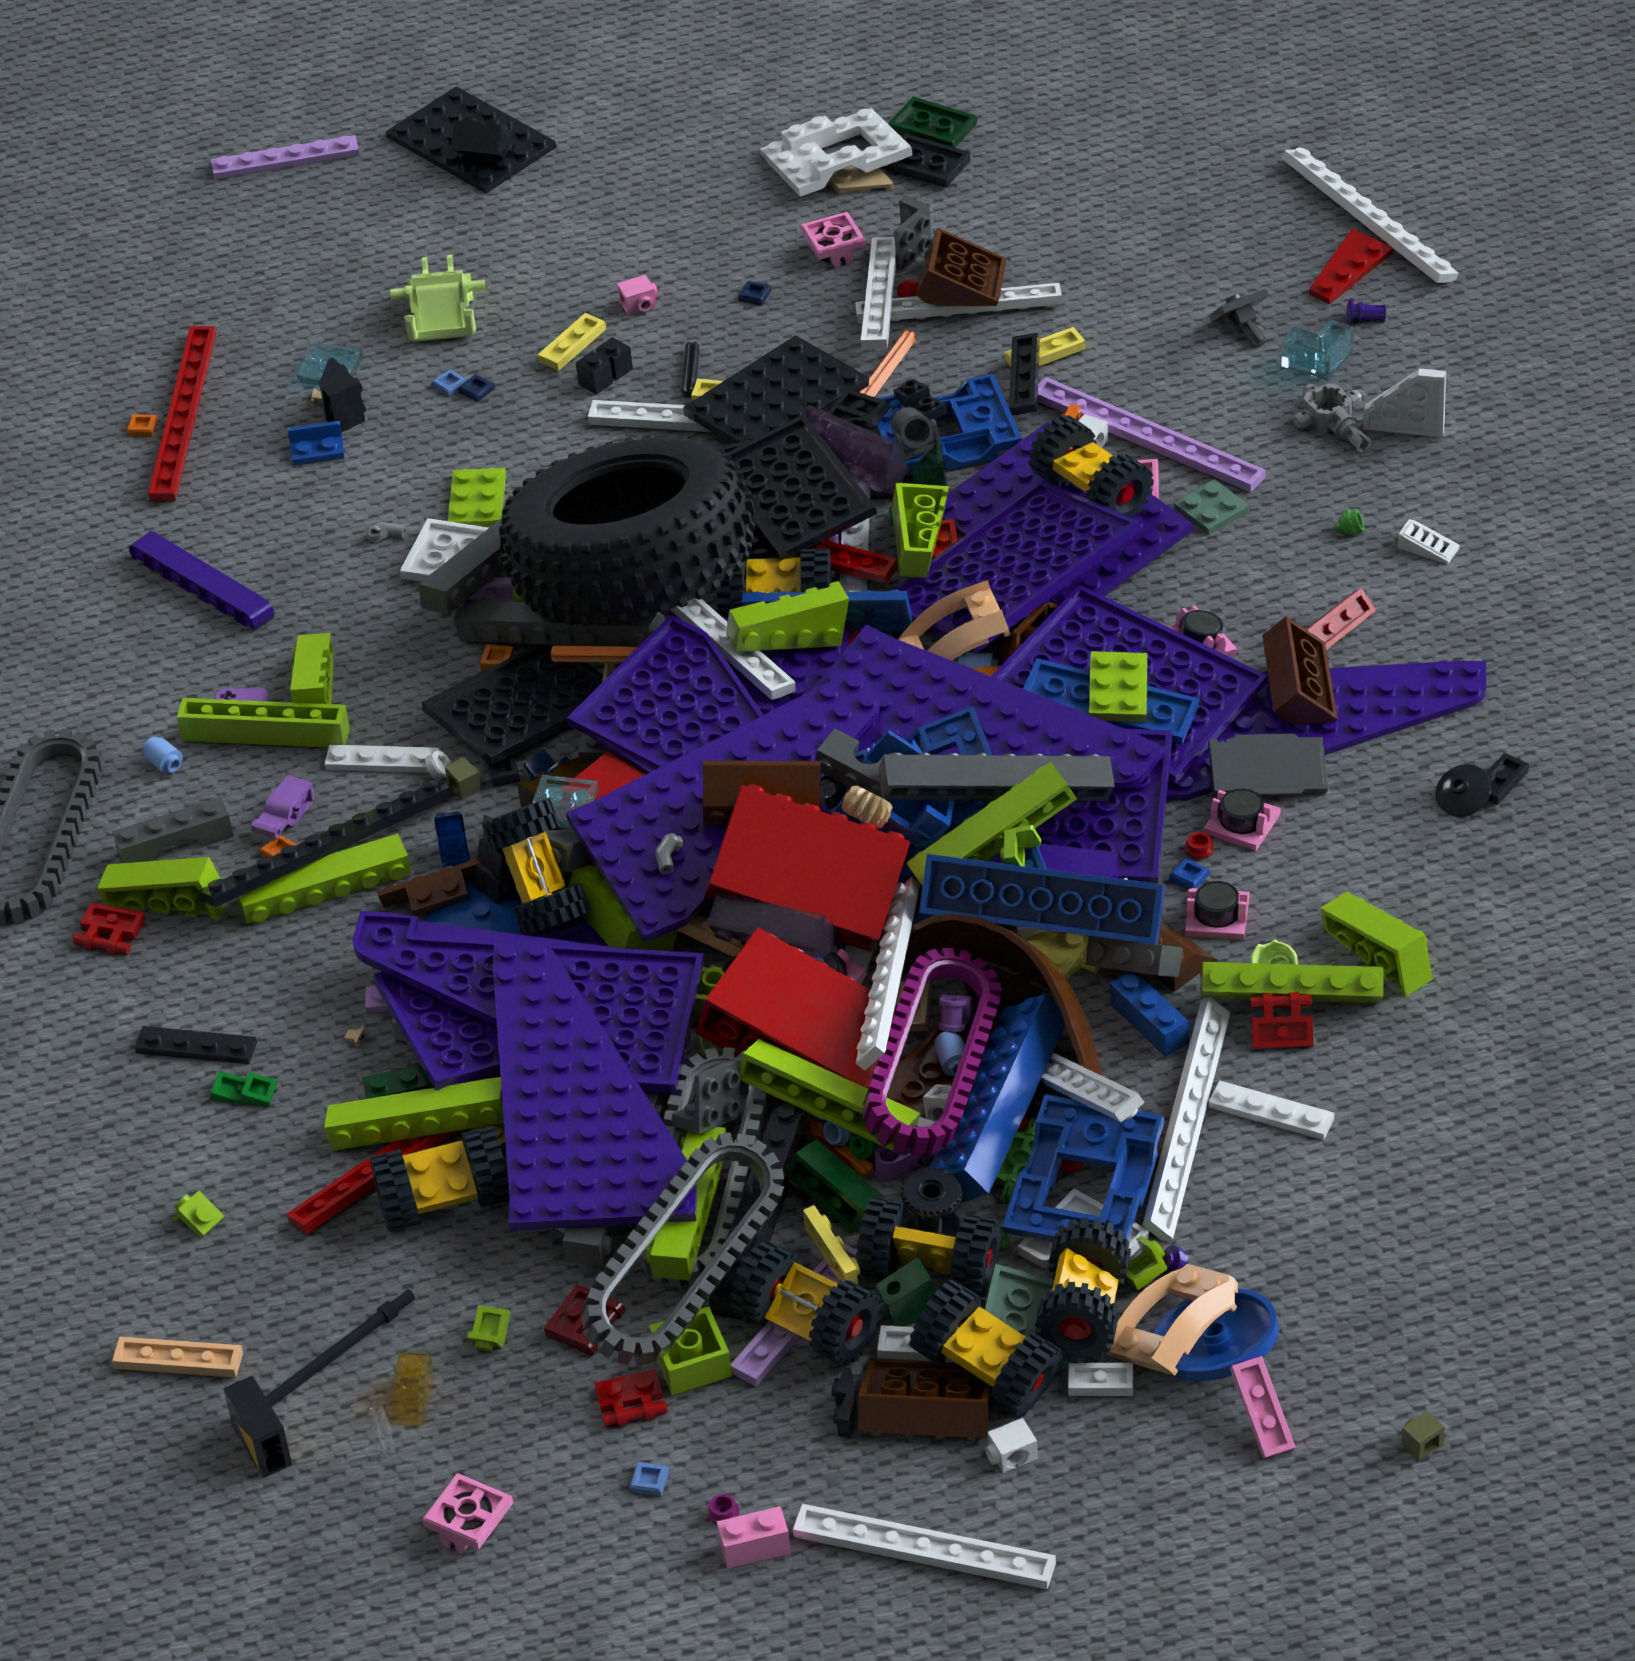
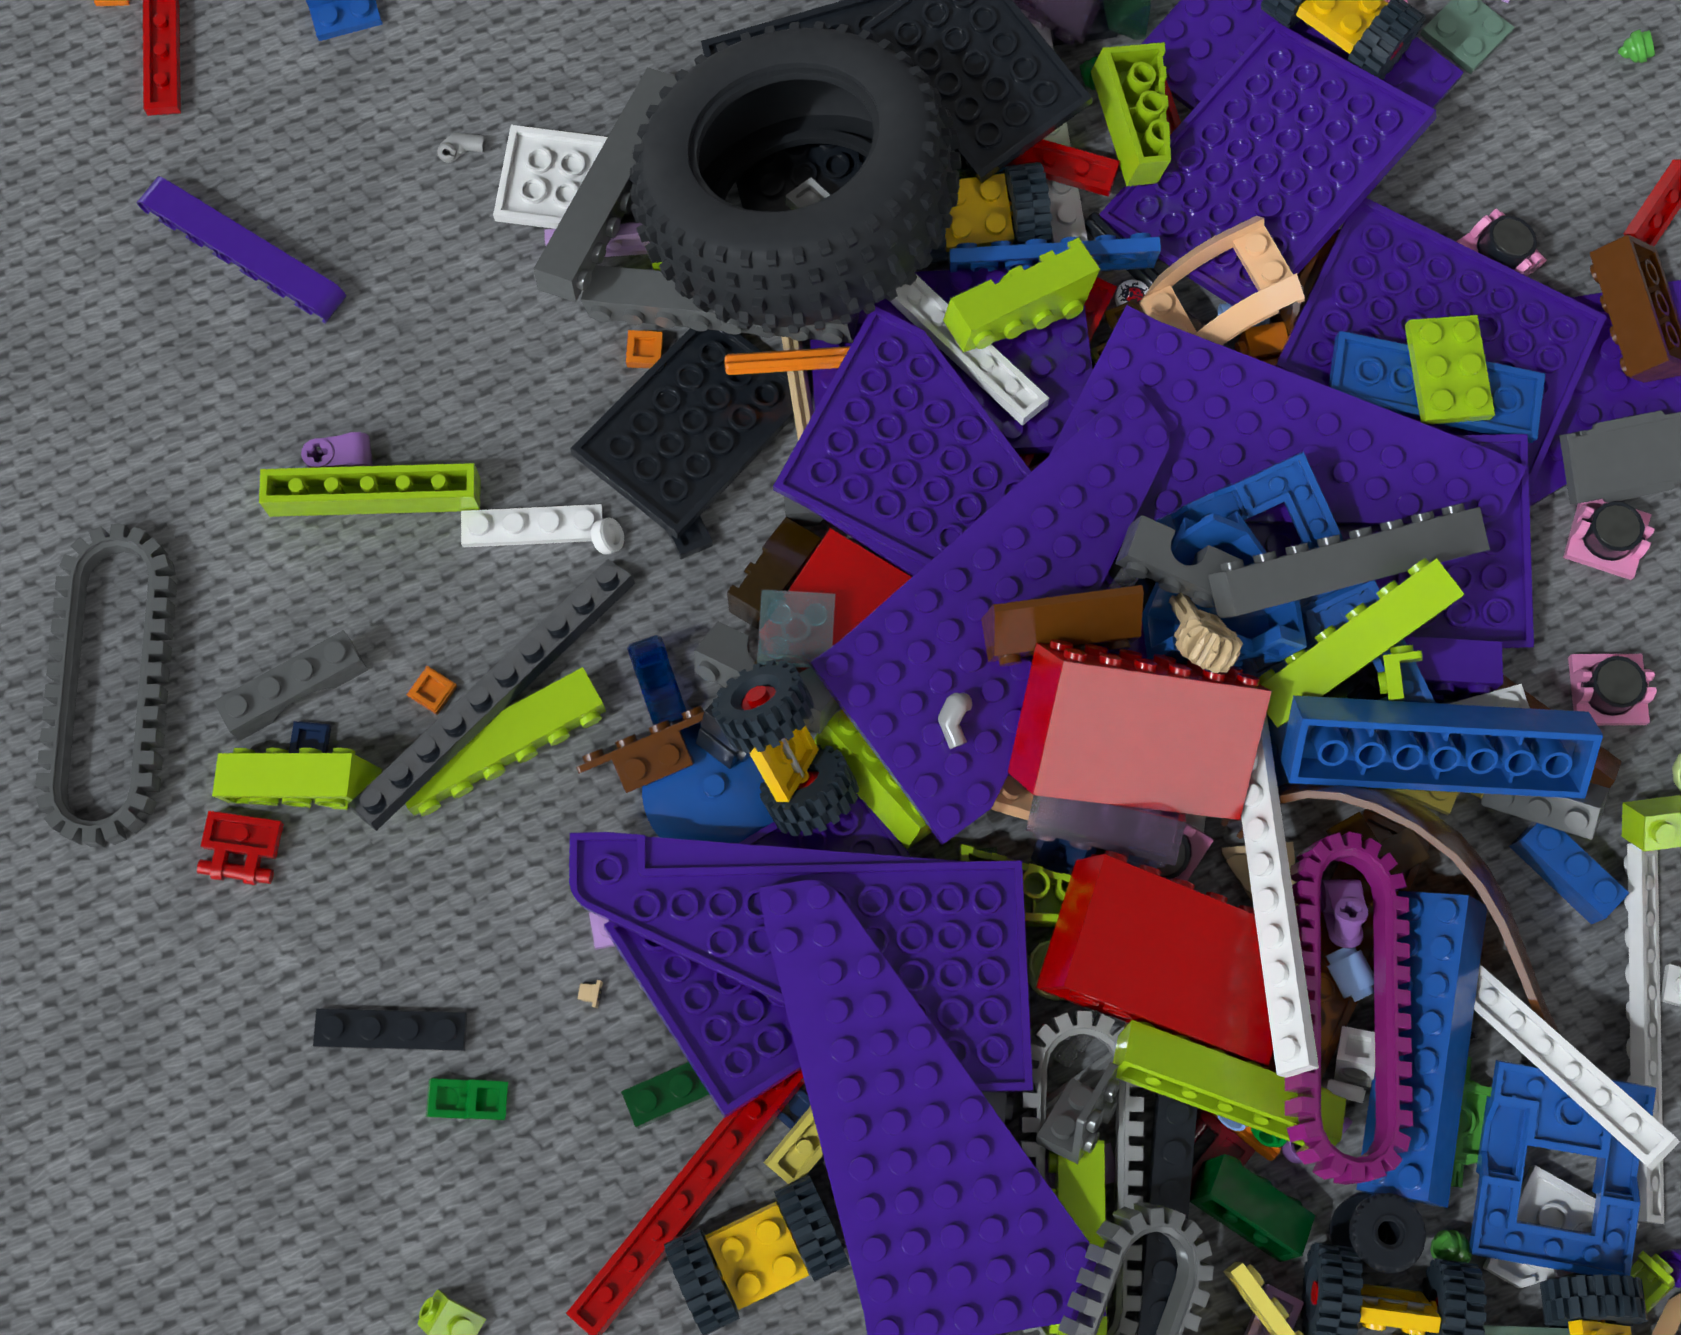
camera: 15 degrees left, 30 degrees up
(162, 755) = (250, 549): light blue brick -> none
(284, 806) = (424, 627): medium lavender piece -> none
(312, 669) = (417, 402): lime wedge -> none
(414, 1114) = (702, 1144): lime brick -> none
(463, 778) = (644, 555): olive plate -> none
(477, 496) = (564, 80): lime plate -> none
(542, 763) = (745, 531): dark blue bracket -> none
(1189, 874) = (1562, 629): blue tile -> none
(1199, 845) = (1565, 583): red plate -> none

